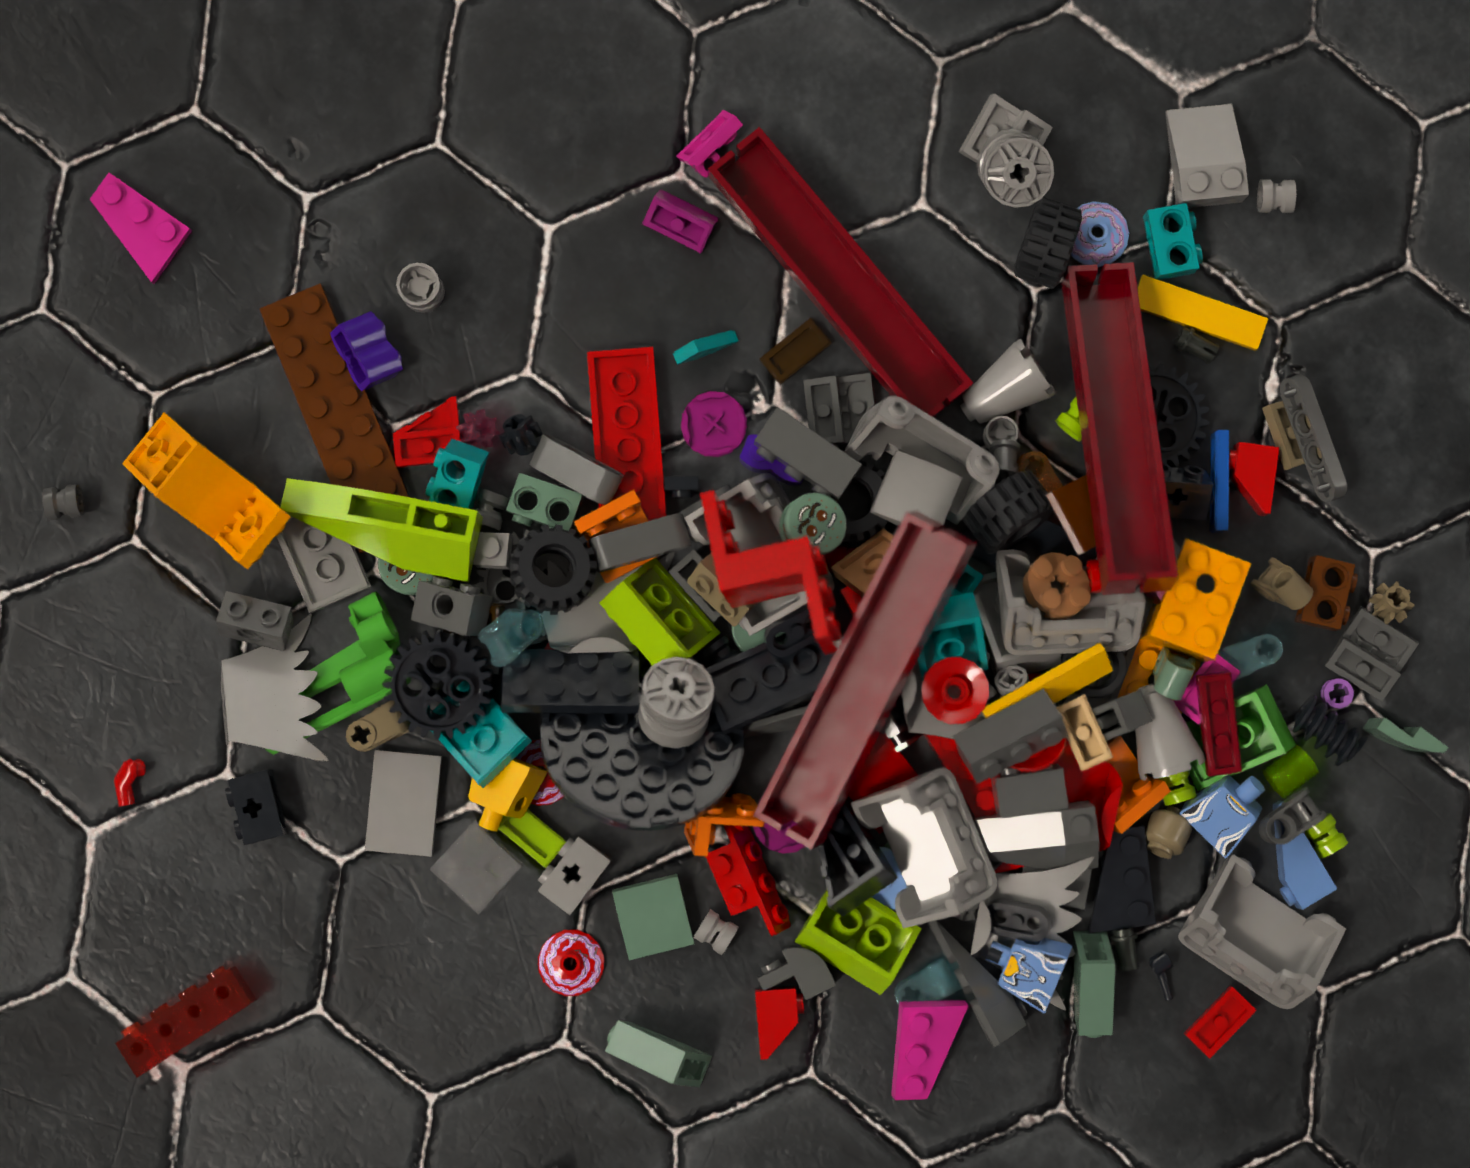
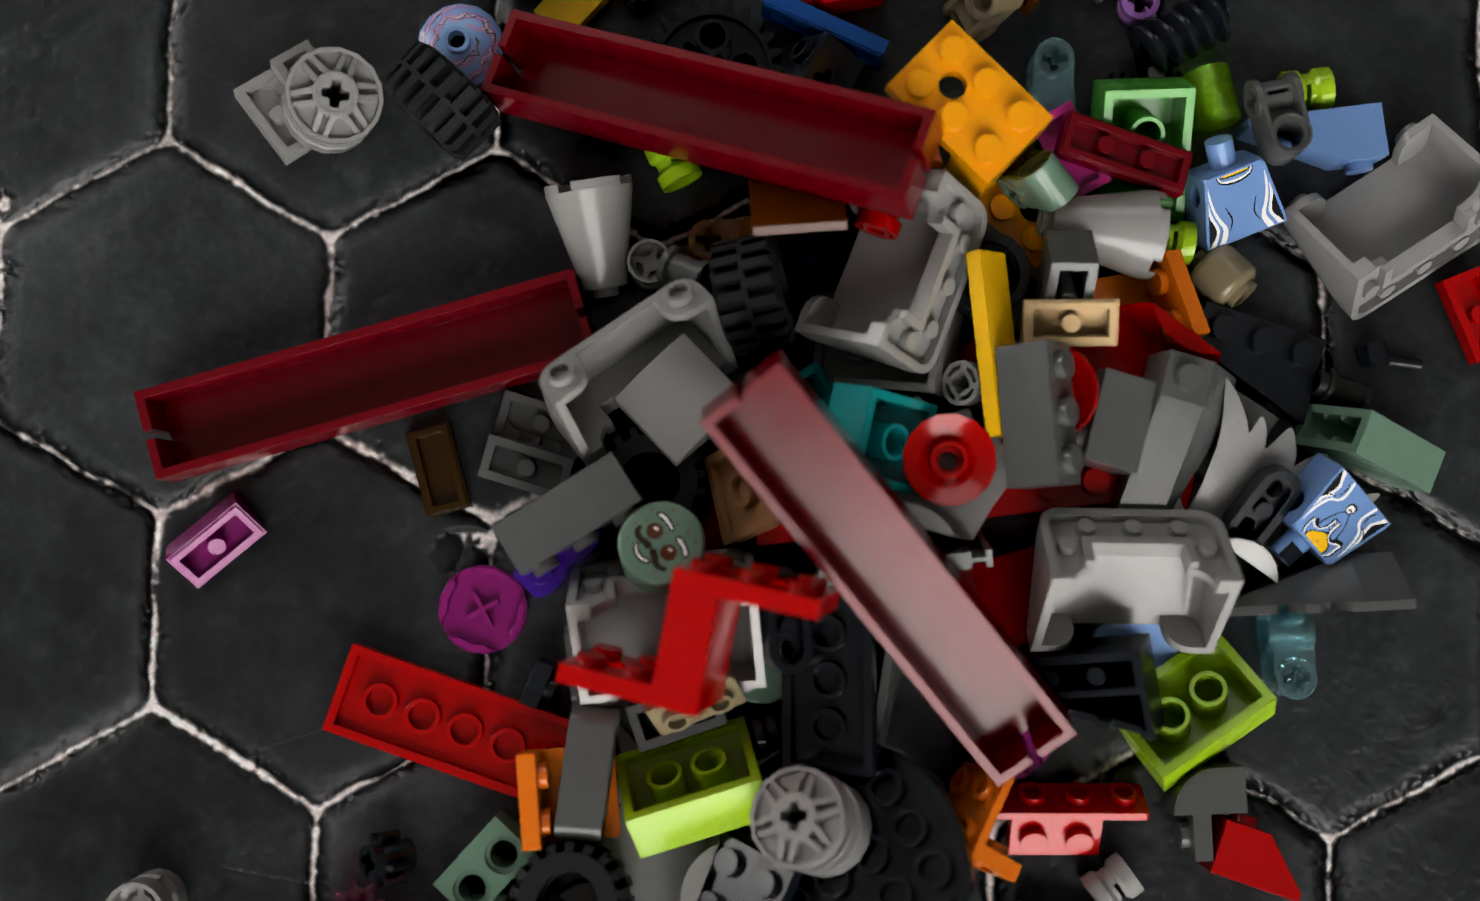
camera: 65 degrees left, 0 degrees up
(576, 469) = (461, 809): beam -> none
(704, 346) = (381, 579): teal tile -> none
(717, 133) = (126, 445): dark pink plate -> none
(922, 1044) = (1359, 688): dark pink wing -> none
(1071, 576) = (866, 253): medium nougat plate -> none

